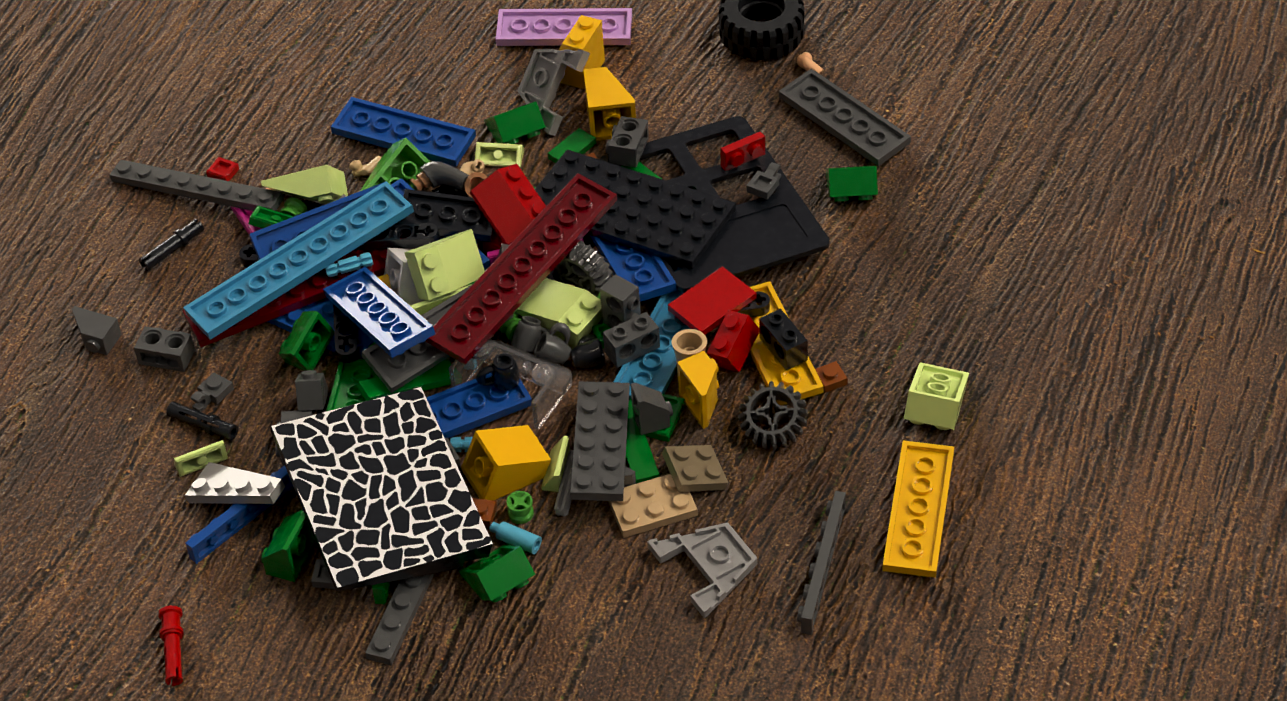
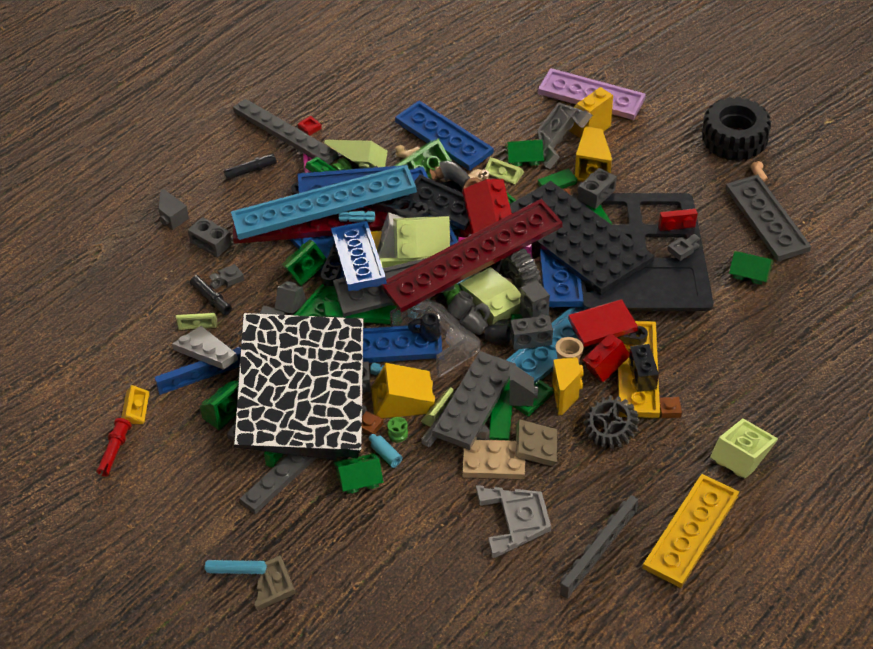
camera: 20 degrees right, 0 degrees up
(172, 585) = (135, 405): none -> yellow slope

